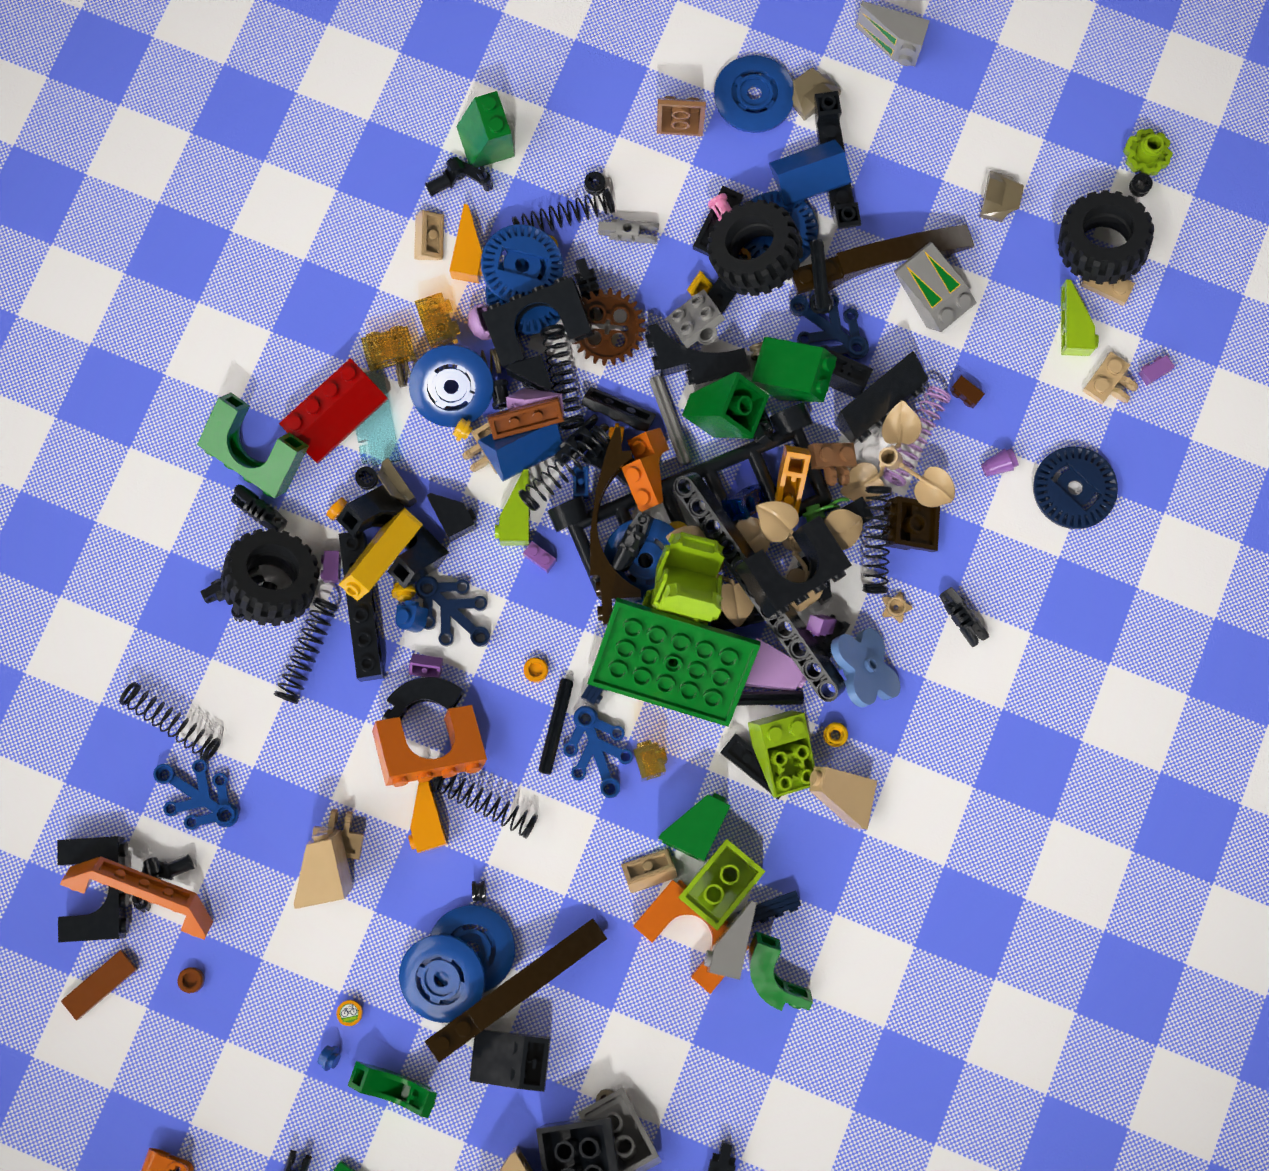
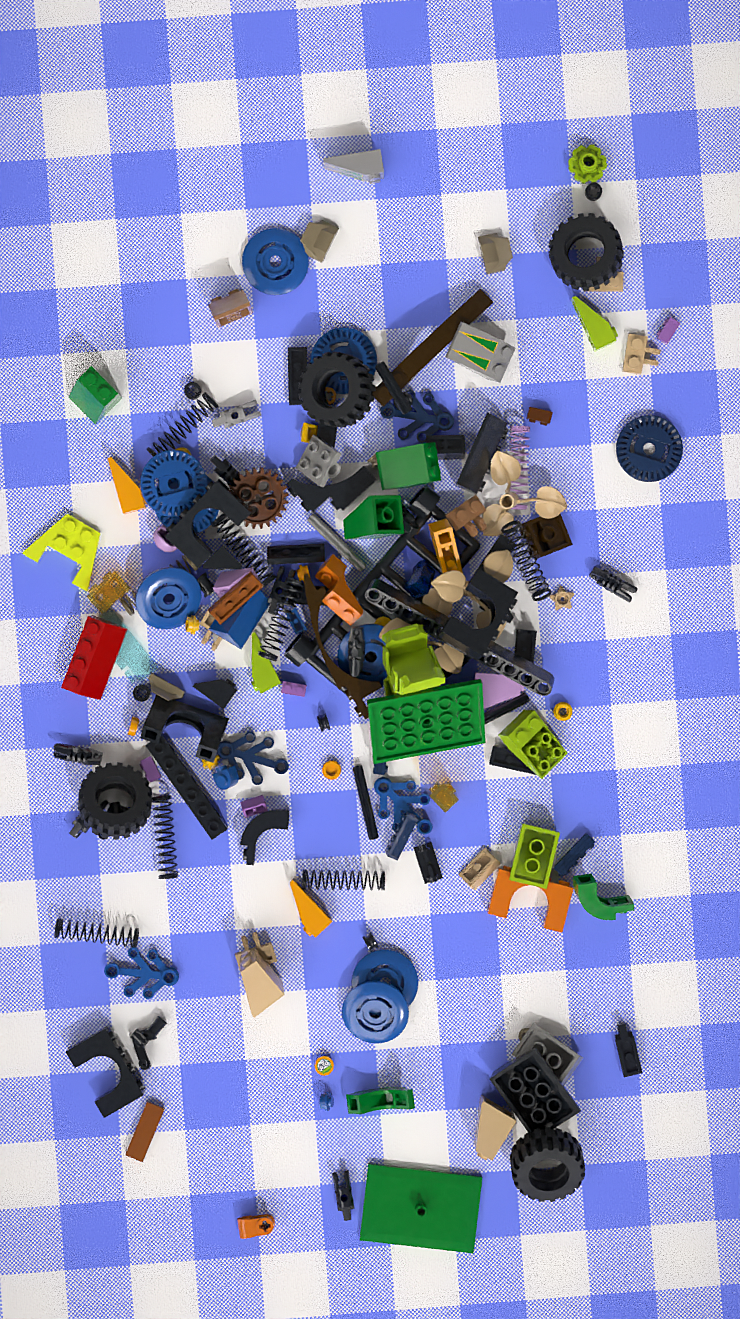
camera: 30 degrees left, 10 degrees up
(144, 886) = (139, 1054): orange slope -> none
(191, 980) = (205, 1097): dark orange tile -> none
(222, 441) = (27, 720): arch -> none
(380, 278) = (74, 541): none -> neon yellow wing
(380, 554) = (184, 747): yellow slope -> none
(402, 765) = (276, 885): orange arch -> none
(428, 236) = (92, 491): tan slope -> none
(436, 320) = (131, 556): clear yellow brick -> none
(457, 170) = (86, 432): black pin -> none
(510, 1060) = (449, 1042): black slope -> none
(515, 990) = (431, 995): dark brown slope -> none
(554, 611) = (323, 722): none -> black bush
(577, 785) = (401, 836): none -> dark blue piece
(592, 832) = (428, 863): none -> black hinge
(697, 828) = (499, 825): green slope -> none
(719, 205) = (296, 367): bright pink bush -> none
(730, 948) = (561, 899): light grey slope -> none
(811, 172) = (347, 306): blue slope -> none
(815, 510) = (475, 560): bright green plate -> none
(821, 624) = (516, 642): medium lavender piece -> none
(827, 120) = (362, 289): black slope -> none
(844, 794) = (589, 751): tan slope -> none
(865, 667) = (561, 656): medium blue plant -> none
(1000, 463) = (587, 457): medium lavender cone -> none

